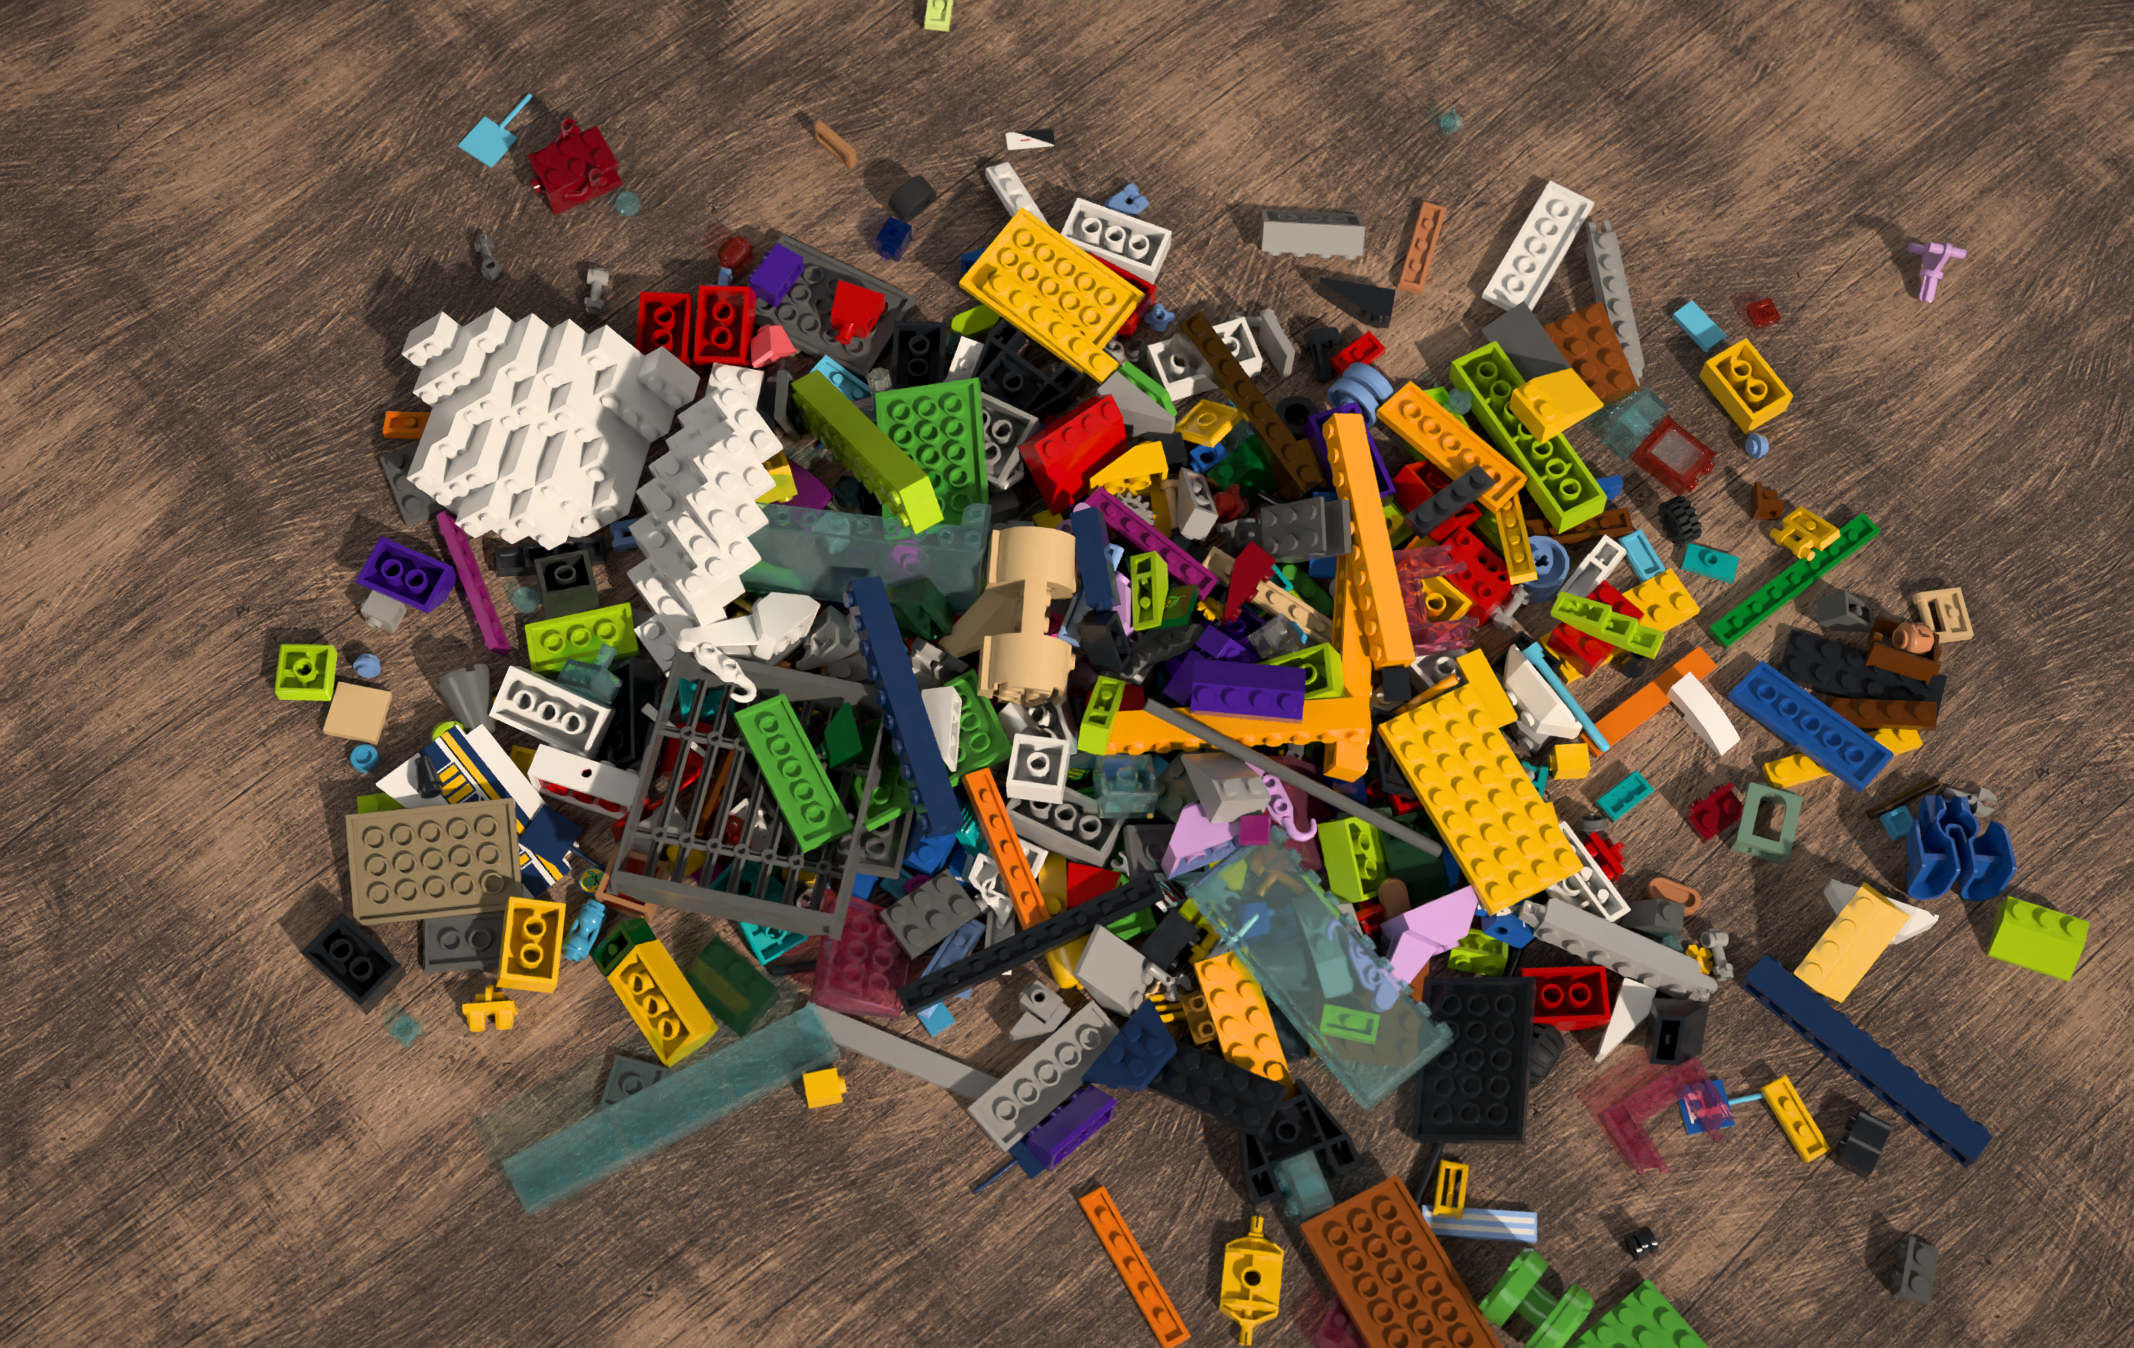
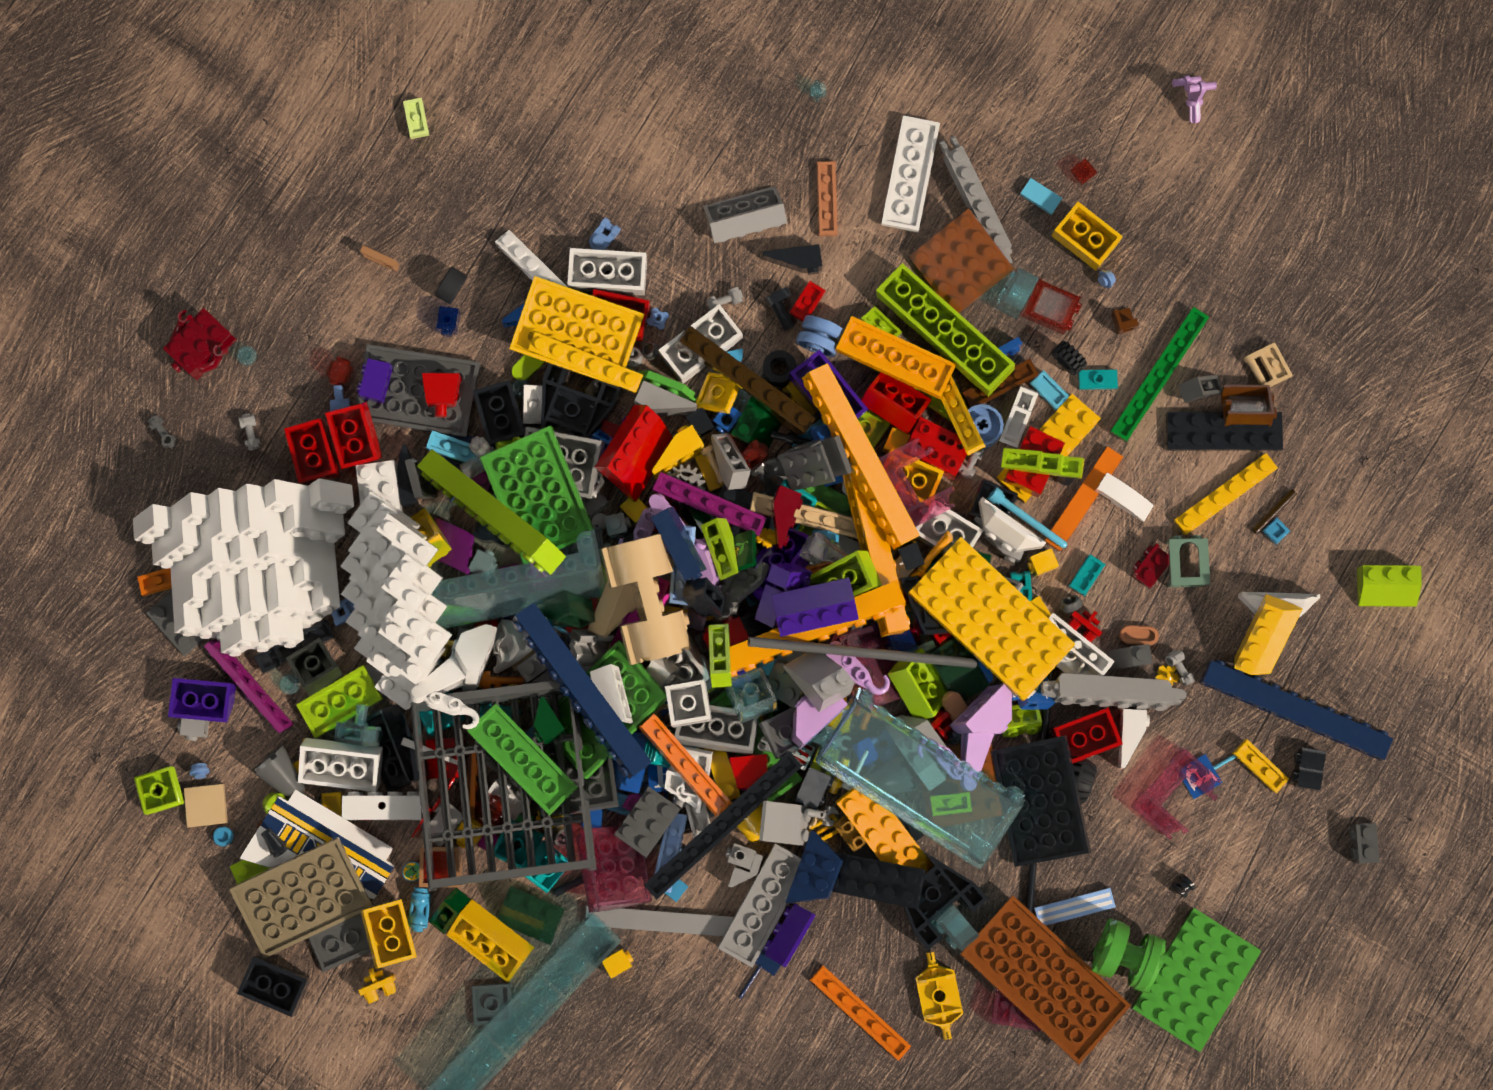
camera: 15 degrees left, 15 degrees up
(400, 1025) = (320, 1020): clear light blue plate -> none
(489, 140) = (127, 336): medium azure piece -> none
(552, 837) = (372, 850): dark blue piece -> none
(770, 346) = (390, 438): coral slope -> none
(1030, 139) = (518, 203): sticker -> none
(1255, 830) = (850, 706): magenta tile -> none
(1276, 345) = (748, 316): light grey tile -> none
(1447, 1210) = (1052, 908): yellow tile -> none
(1449, 501) = (907, 406): black plate -> none
(1463, 405) = (893, 322): clear light blue plate -> none
(1478, 672) = (972, 534): yellow tile -> none
(1525, 343) = (929, 263): dark grey tile -> none
(1553, 403) = (958, 302): yellow slope -> none
(1672, 942) = (1147, 673): clear light blue plate -> none
(1675, 1030) = (1166, 735): black slope -> none
(1810, 528) = (1162, 333): yellow plate -> none
(1811, 726) = (1199, 483): blue plate -> none
(1886, 713) = (1244, 457): reddish brown plate -> none
(1913, 638) = (1252, 396): nougat head -> none
(1933, 859) = (1304, 551): blue piece -> none
(1974, 800) = (1321, 497): light grey bar -> none

